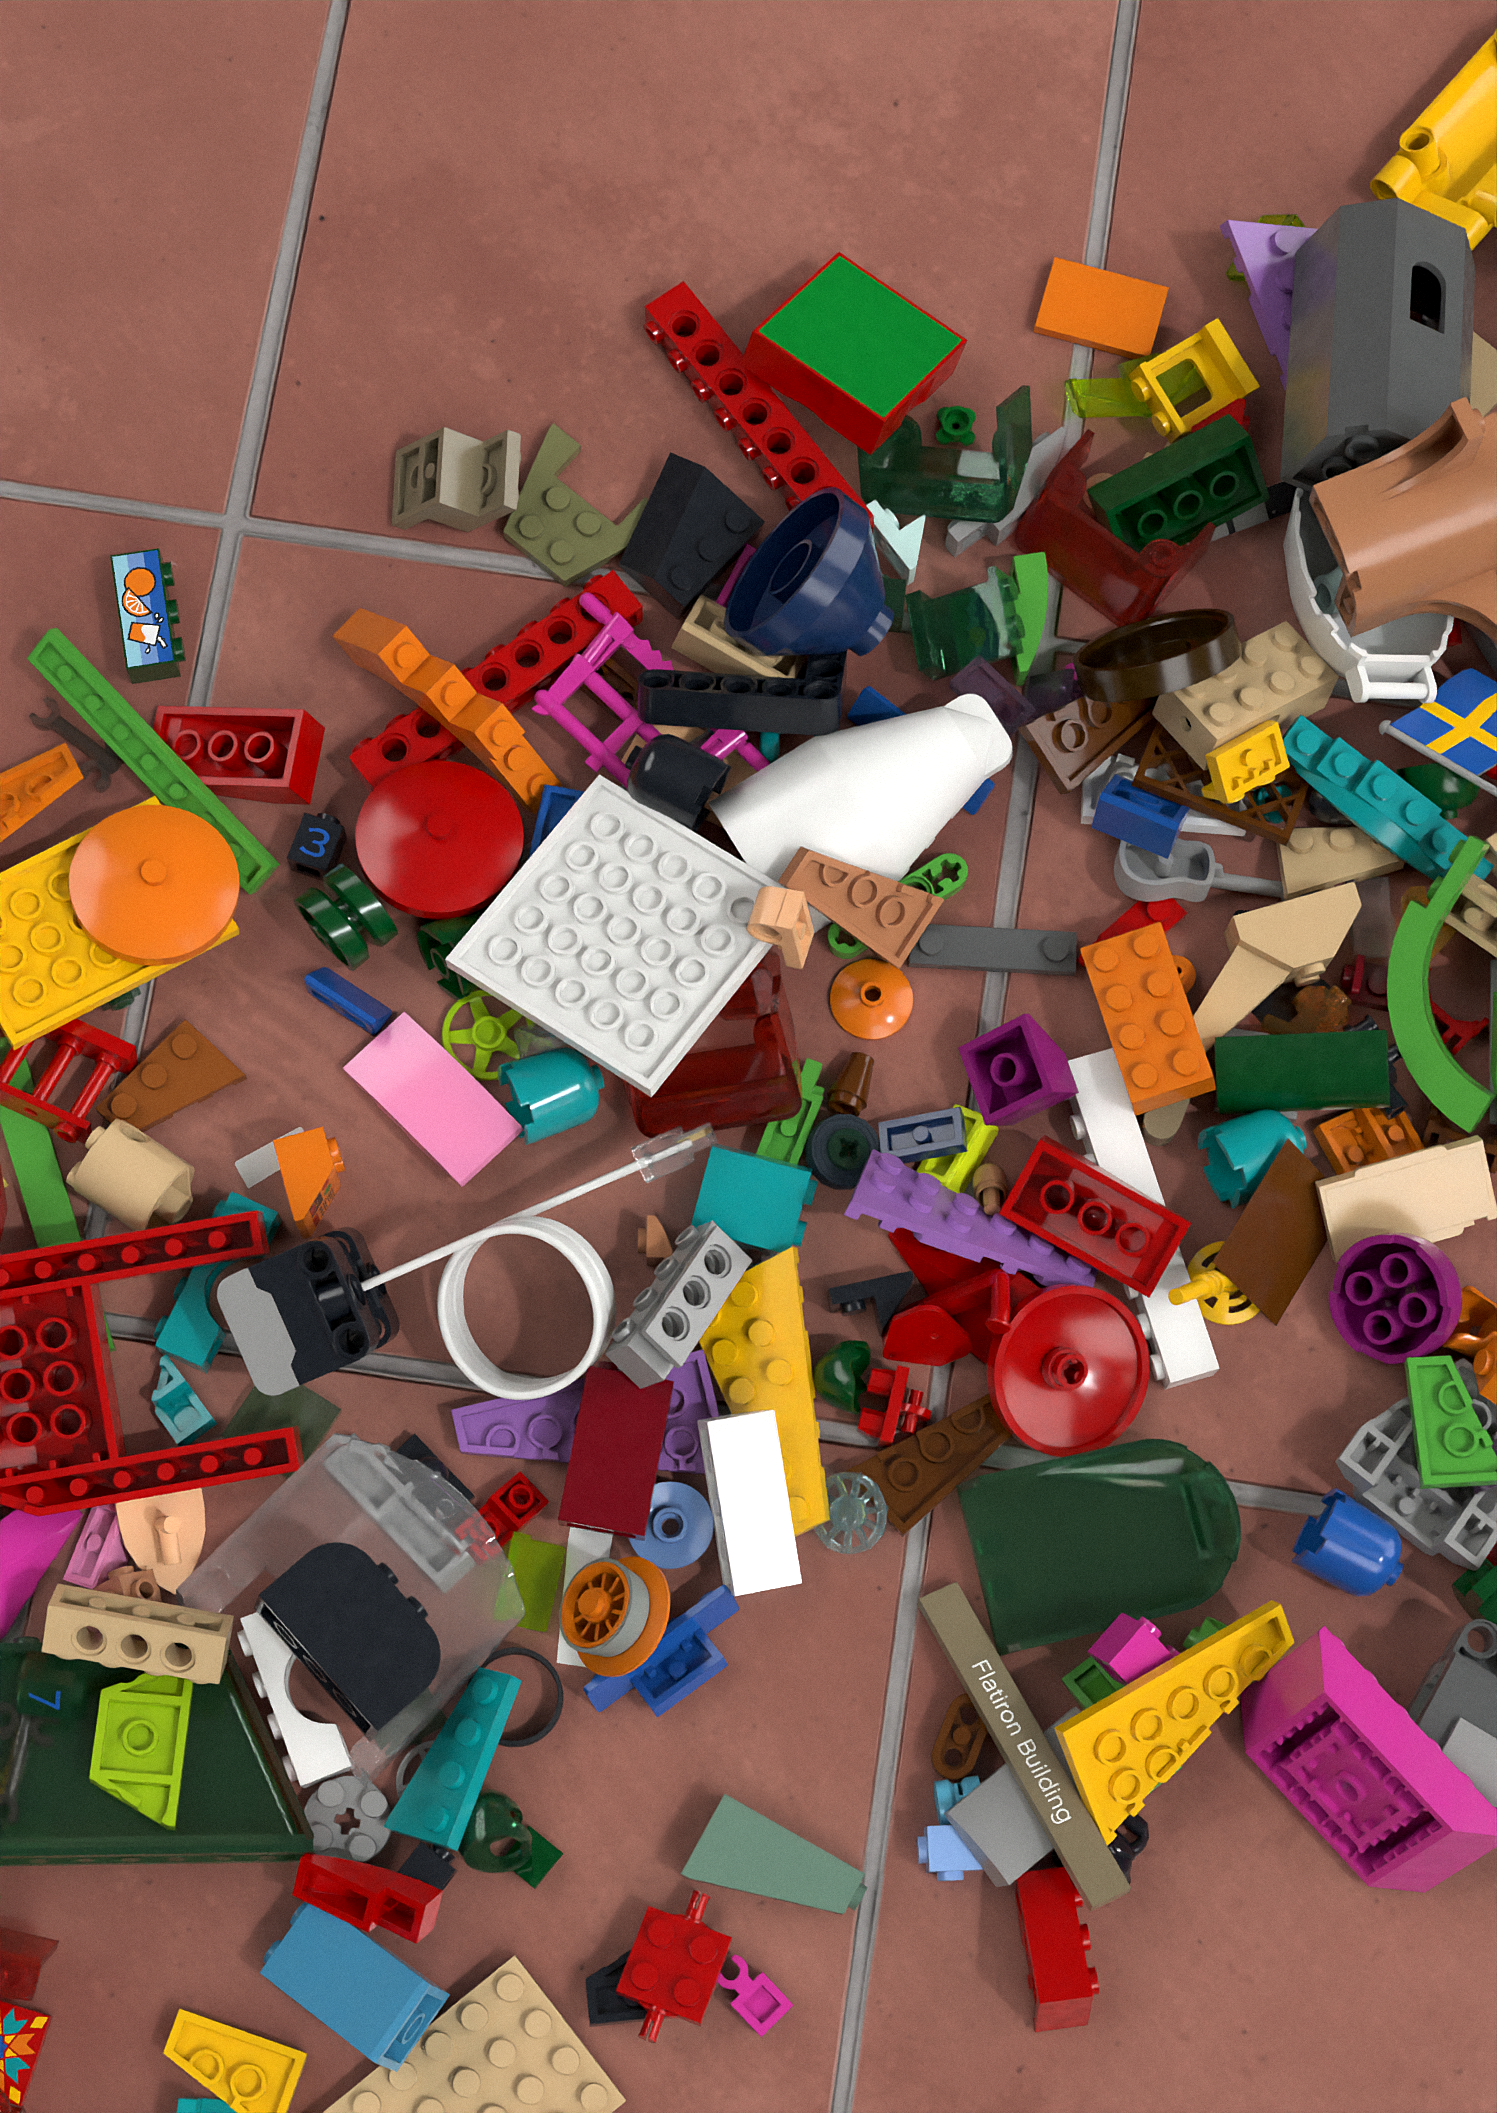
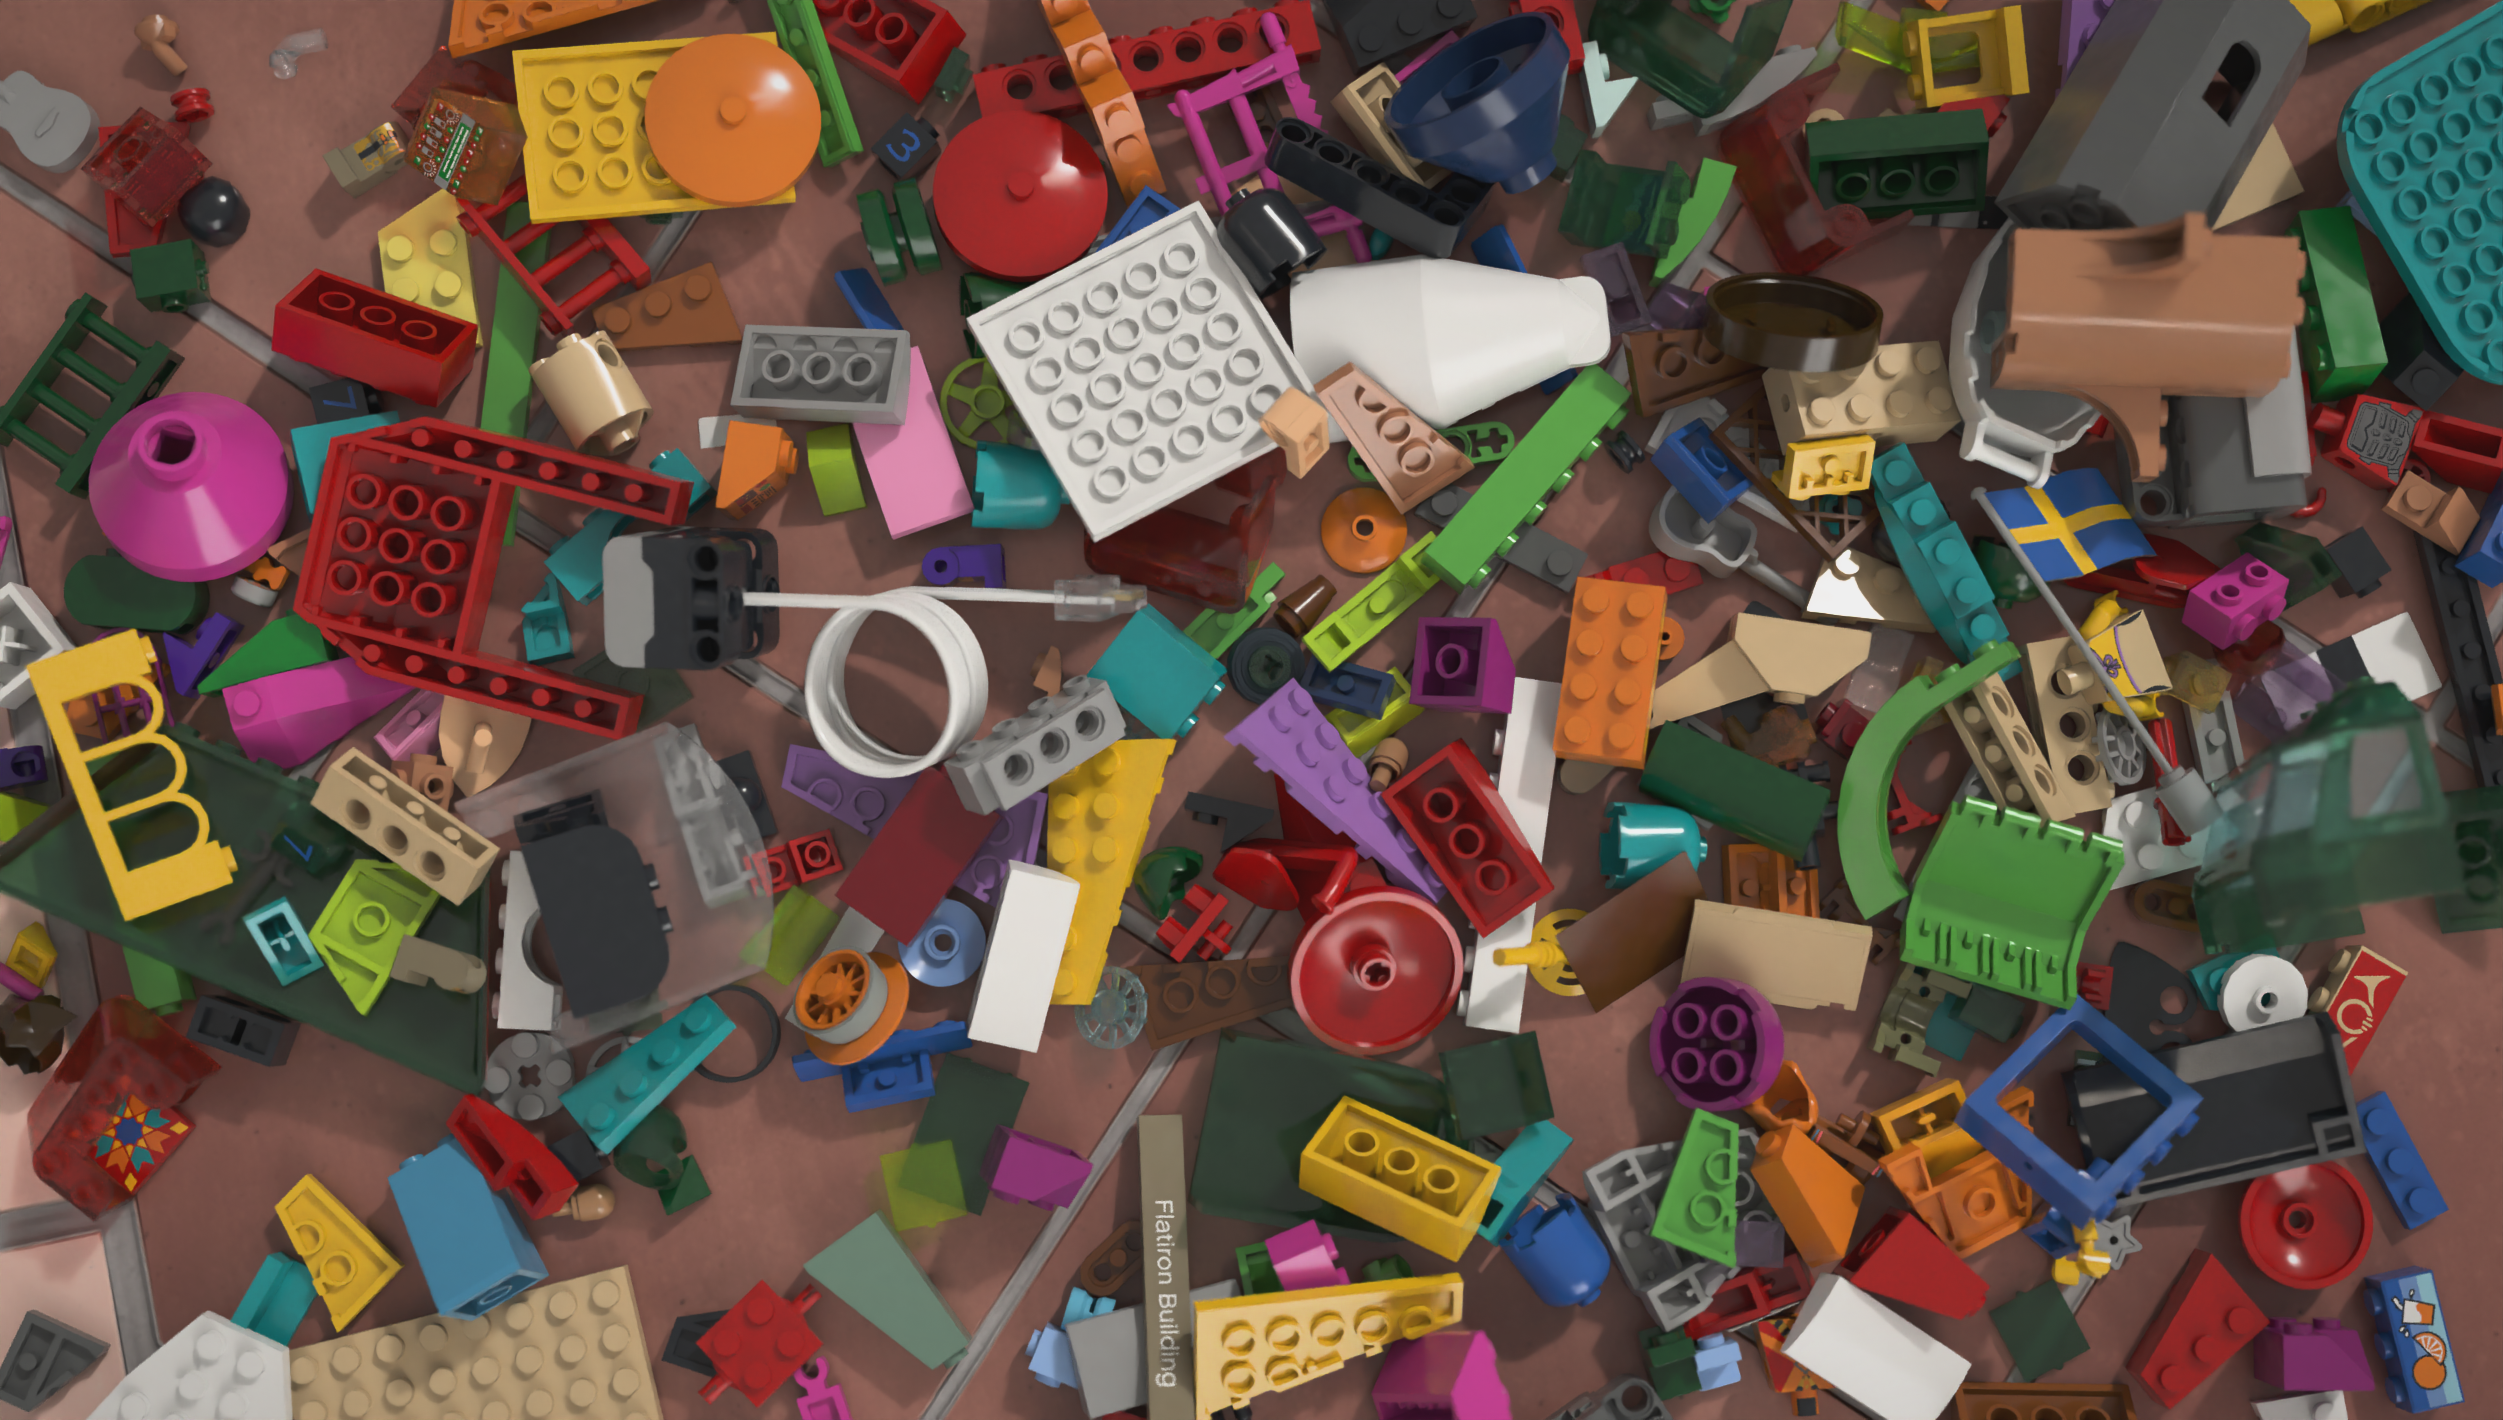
camera: 25 degrees right, 10 degrees up
(62, 1899) = (243, 1030): none -> black brick
(68, 1792) = (283, 940): none -> teal slope
(221, 1747) = (450, 968): none -> dark tan leg
(274, 1563) = (561, 817): none -> black wing
(331, 766) = (954, 75): none -> clear green plate
(333, 1070) = (823, 374): none -> light grey slope
(380, 1152) = (835, 470): none -> lime slope
(455, 1914) = (589, 1203): none -> medium nougat cylinder
(535, 1181) = (966, 564): none -> dark purple leg
(755, 1752) = (923, 1185): none -> clear neon green piece
(768, 1691) = (966, 1109): none -> clear green piece
(849, 1685) = (1033, 1169): none -> magenta slope
(917, 1051) = (1372, 607): none -> lime slope
(992, 889) = (1526, 477): none -> bright green brick
(1065, 832) = (1624, 451): none -> black bush
(1177, 1542) = (1398, 1177): none -> yellow slope
(1222, 1422) = (1496, 1085): none -> clear green slope
(1277, 1503) = (1523, 1172): none -> teal slope

